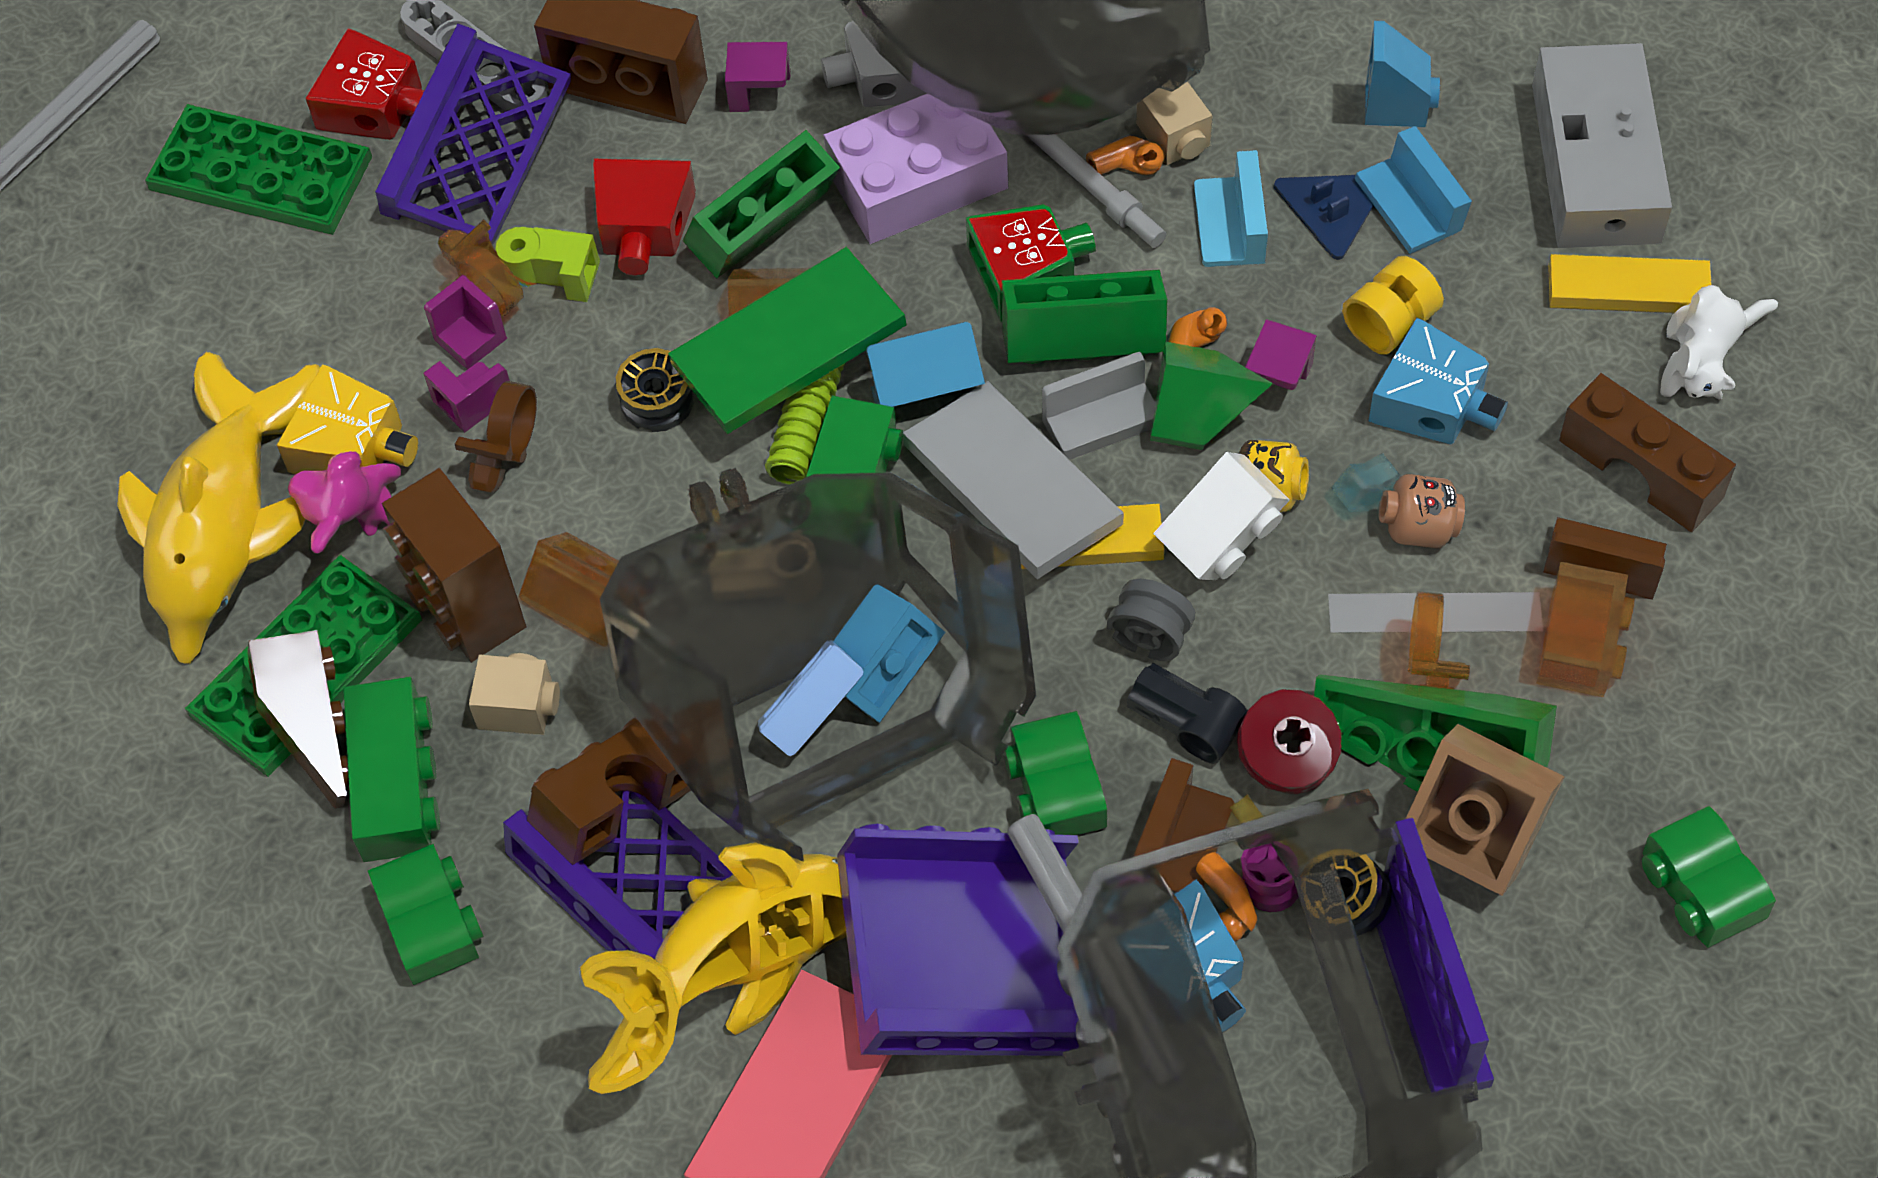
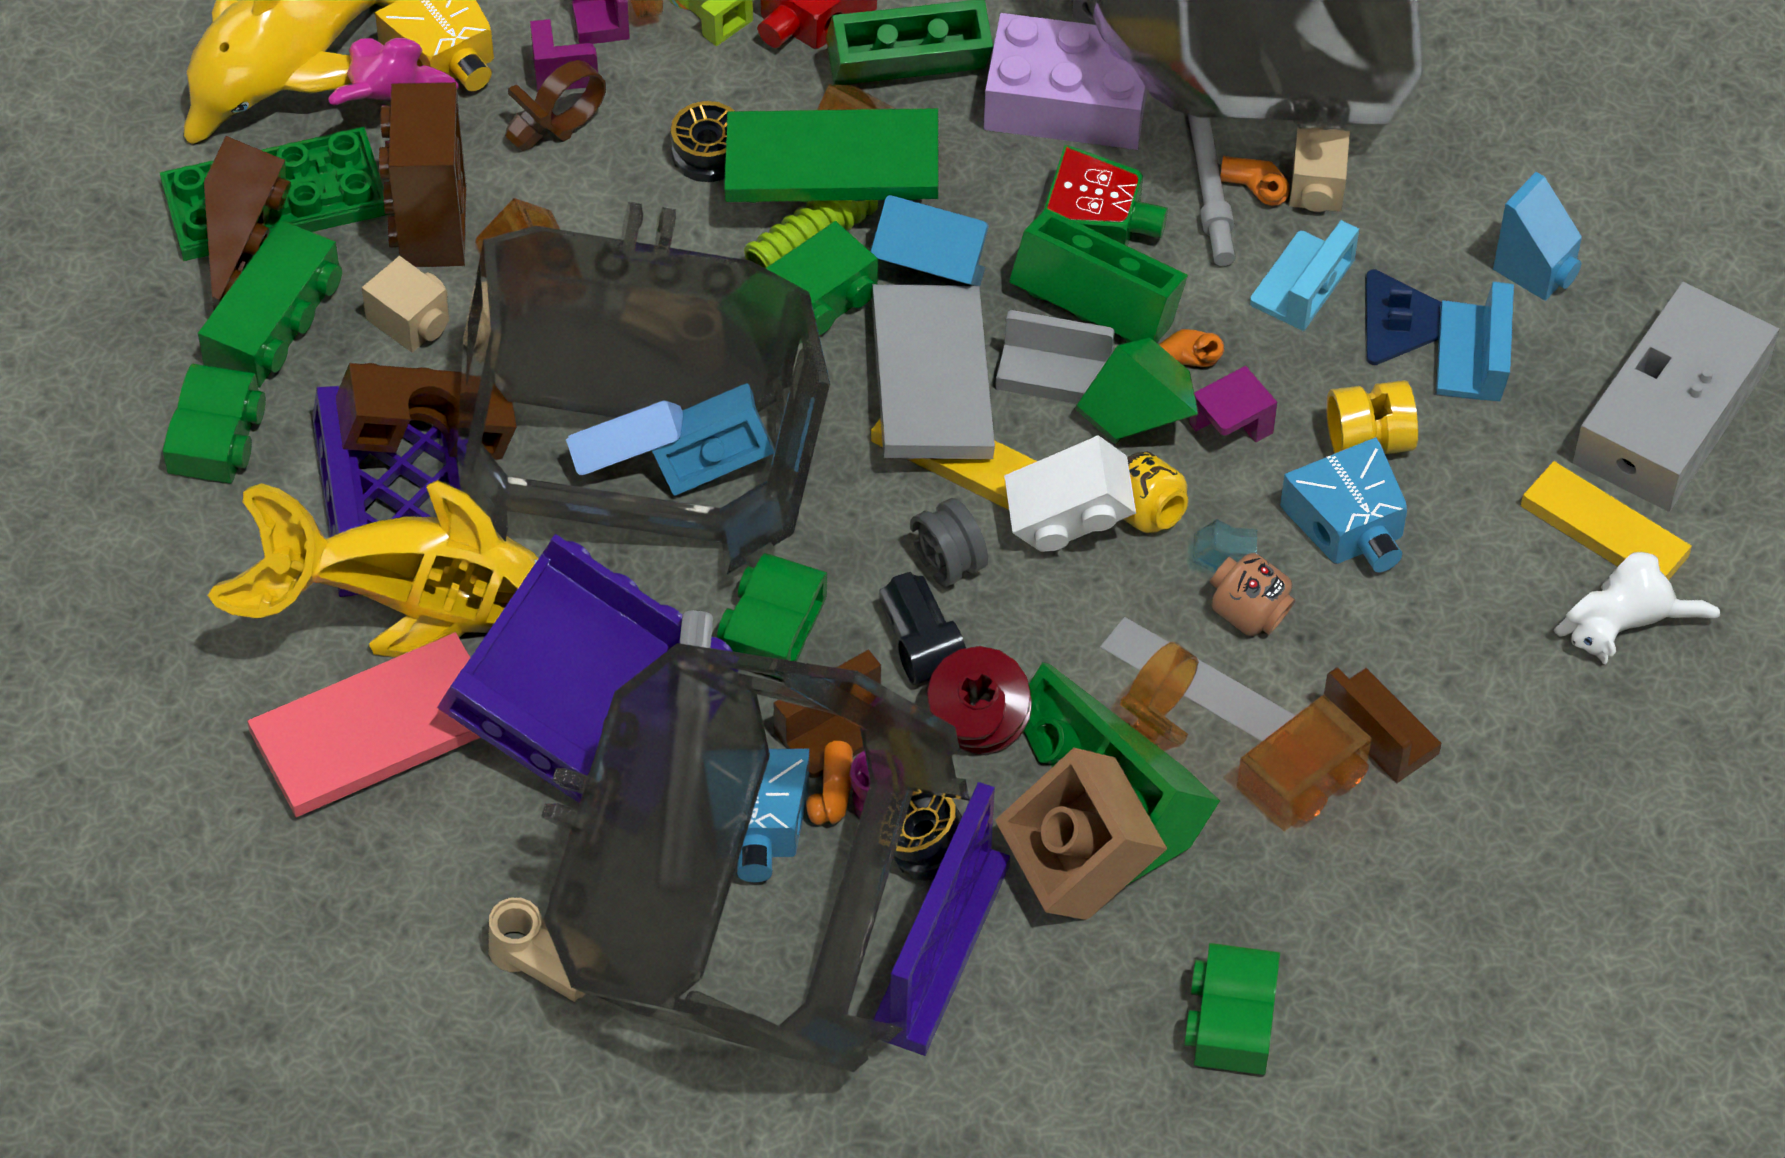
camera: 30 degrees right, 5 degrees down
(1681, 470) = (1498, 683): reddish brown arch -> none

